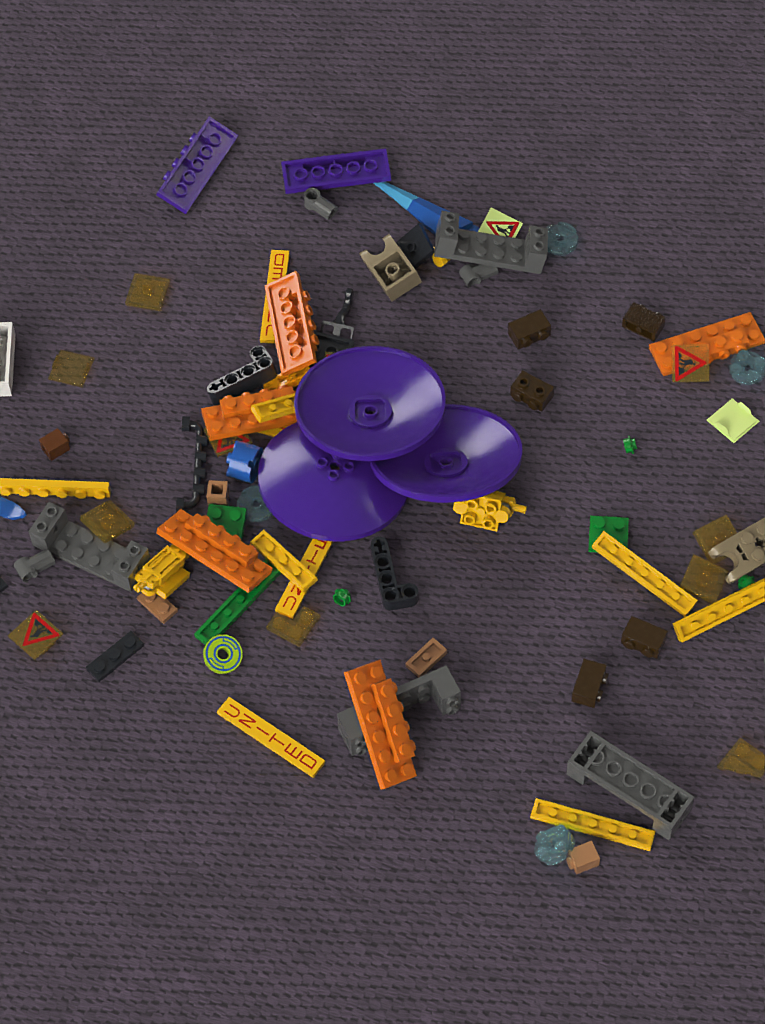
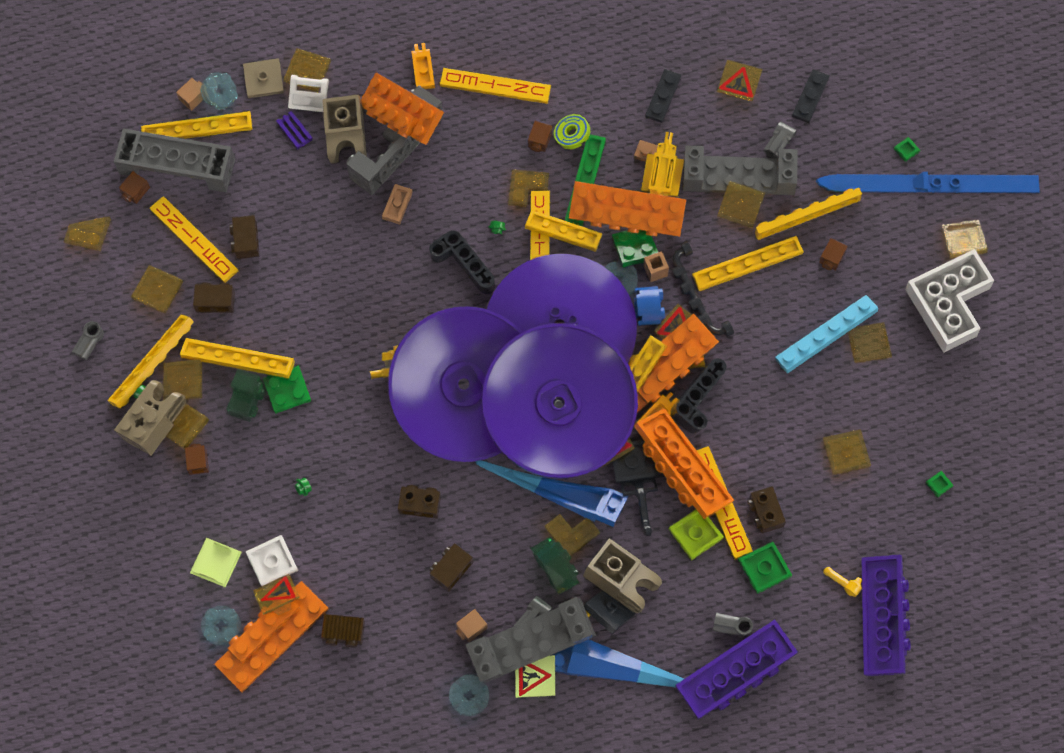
camera: 155 degrees right, 10 degrees up
(88, 240) = (939, 484): none -> green tile
(102, 386) = (826, 334): none -> medium azure plate
(133, 472) = (747, 263): none -> yellow tile
(208, 195) = (851, 587): none -> yellow piece
(241, 272) = (766, 509): none -> dark brown brick
(256, 662) = (539, 136): none -> reddish brown brick
(268, 235) = (765, 567): none -> green plate
(313, 278) = (695, 534): none -> lime plate
(333, 784) = (423, 67): none -> light orange hinge
(381, 329) = (585, 500): none -> blue plate
(413, 314) = (570, 538): none -> clear yellow plate
(441, 296) = (556, 564): none -> clear green brick
(441, 752) = (344, 131): none -> dark tan brick
(452, 834) = (307, 66): none -> clear yellow plate
(464, 798) = (305, 99): none -> white plate
(490, 762) = (289, 135): none -> dark purple tile
(501, 847) = (263, 78): none -> dark tan plate
(534, 283) = (471, 626): none -> medium nougat brick
(641, 710) = (194, 239): none -> yellow tile
(649, 536) = (246, 393): none -> clear green brick
(682, 398) = (271, 560): none -> white plate
(685, 779) = (133, 188): none -> reddish brown brick
(696, 674) = (157, 289): none -> clear yellow plate
(717, 503) = (196, 459): none -> reddish brown brick

